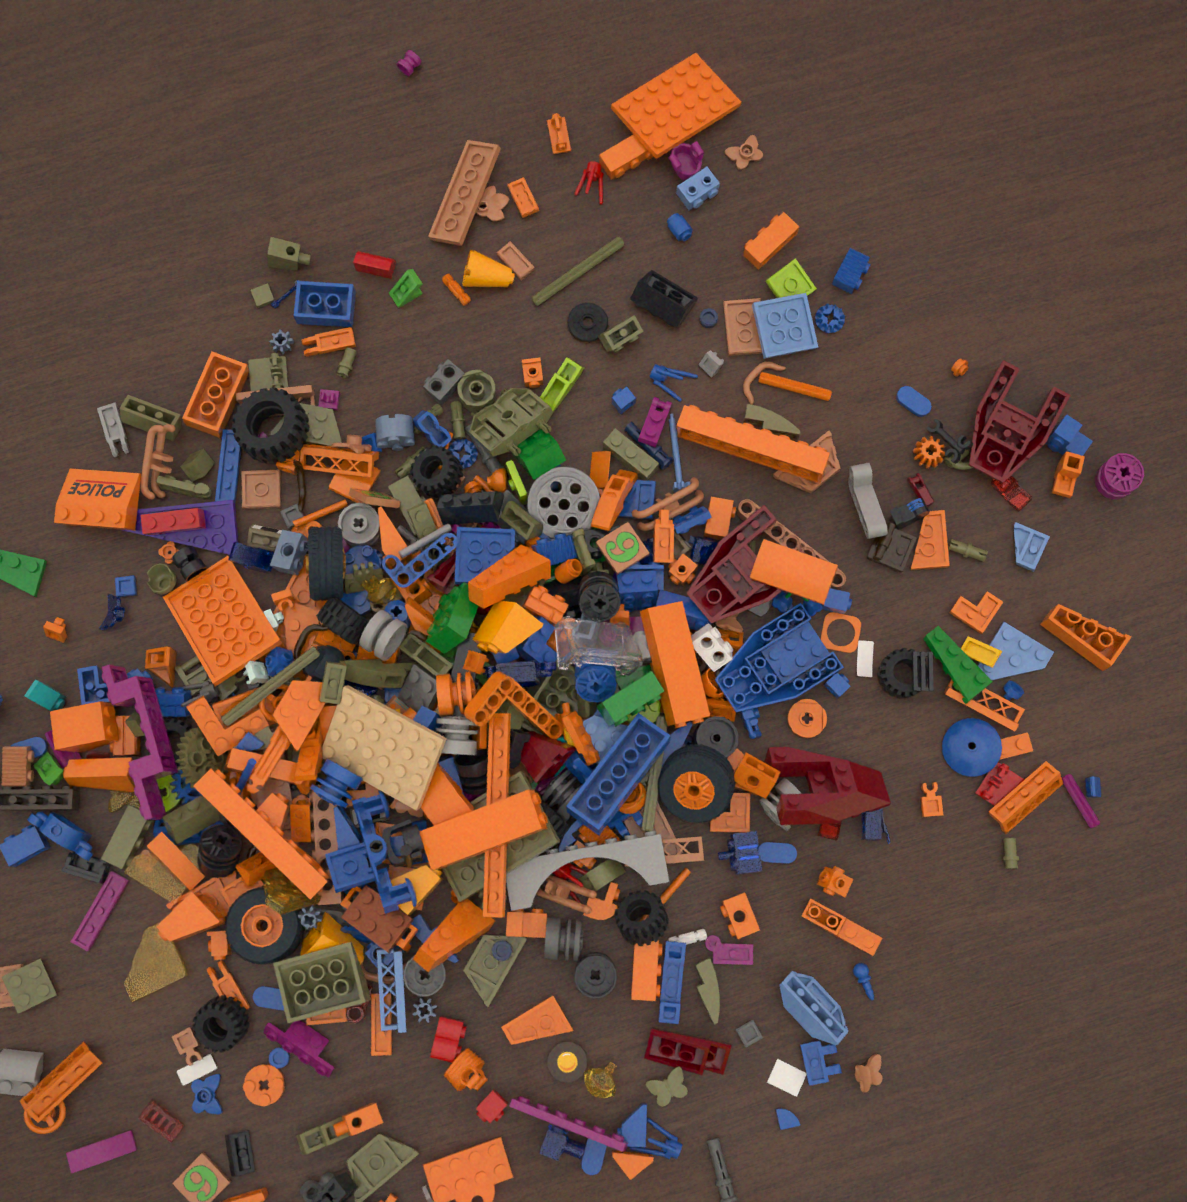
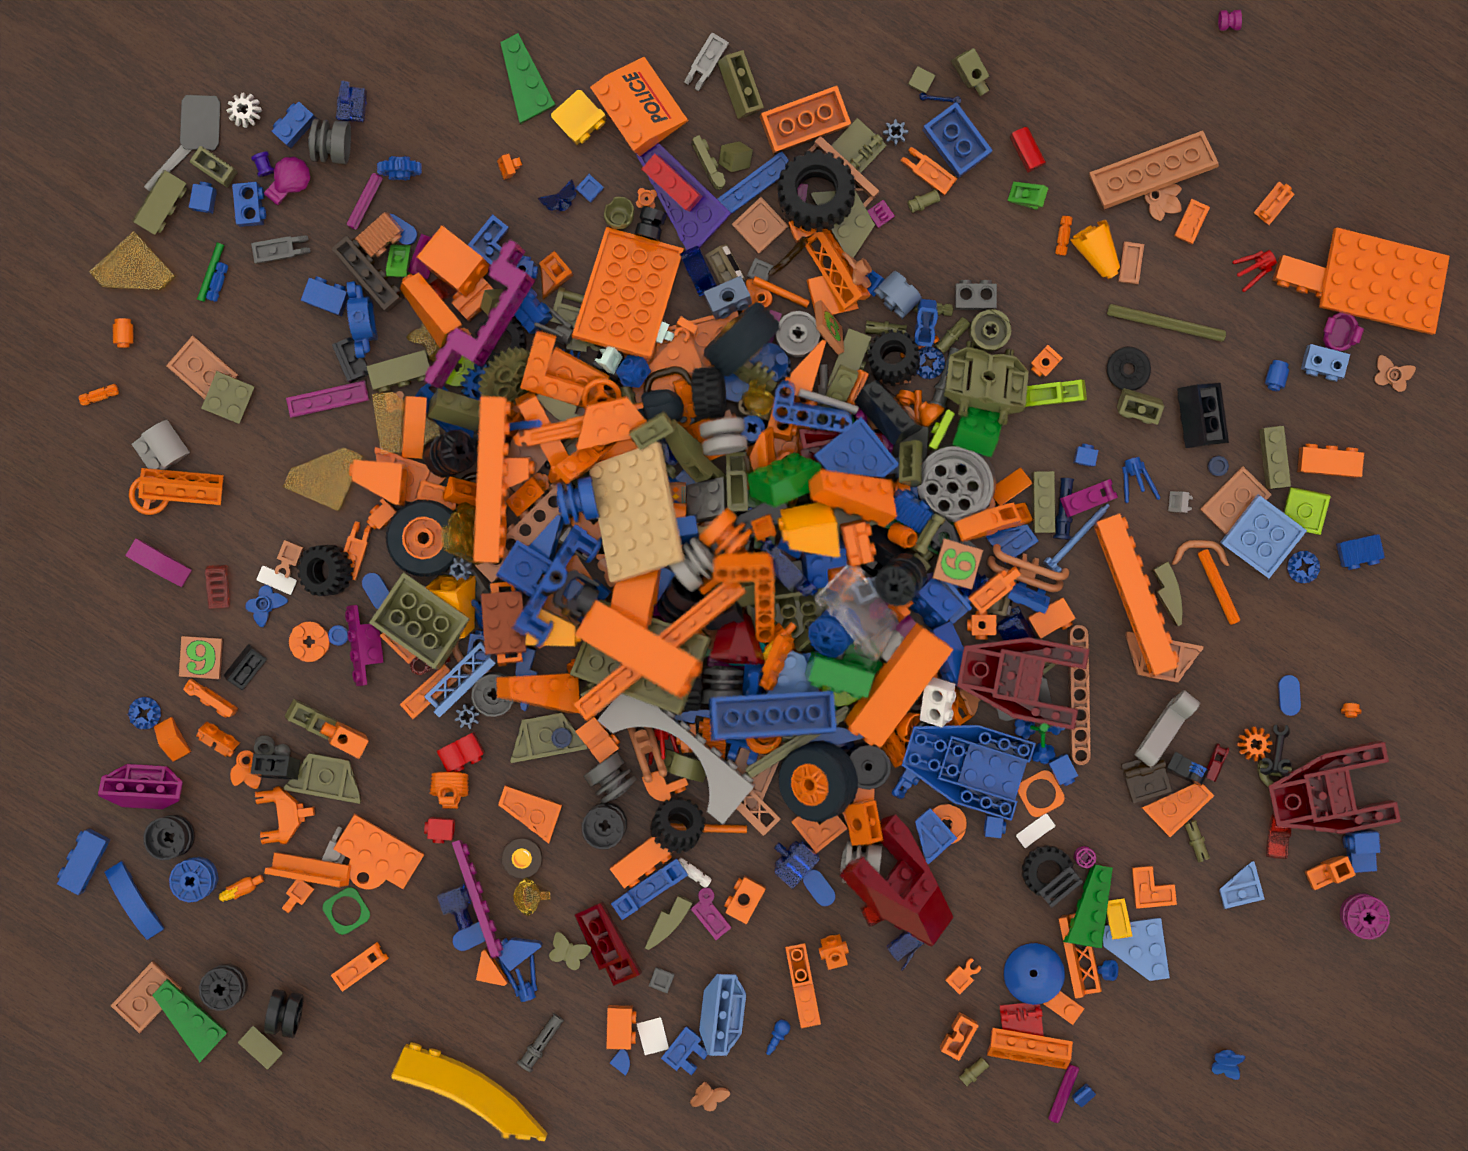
camera: 50 degrees right, 10 degrees up
(45, 696) = (451, 208): teal slope -> none
(69, 550) = (578, 117): none -> yellow bracket
(154, 459) = (706, 121): nougat piece -> none
(249, 742) = (551, 404): blue tile -> none
(270, 686) = (608, 382): olive axle -> none
(735, 274) = (1275, 457): none -> olive brick
(760, 1098) = (620, 1027): none -> orange brick
(793, 571) = (1052, 719): orange slope -> none
(807, 733) = (933, 835): none -> blue wing
(910, 638) = (1082, 854): none -> magenta wheel
(977, 841) = (956, 1044): none -> orange brick
(1086, 636) = (1203, 994): orange wedge -> none
(1153, 662) = (1227, 1063): none -> blue animal

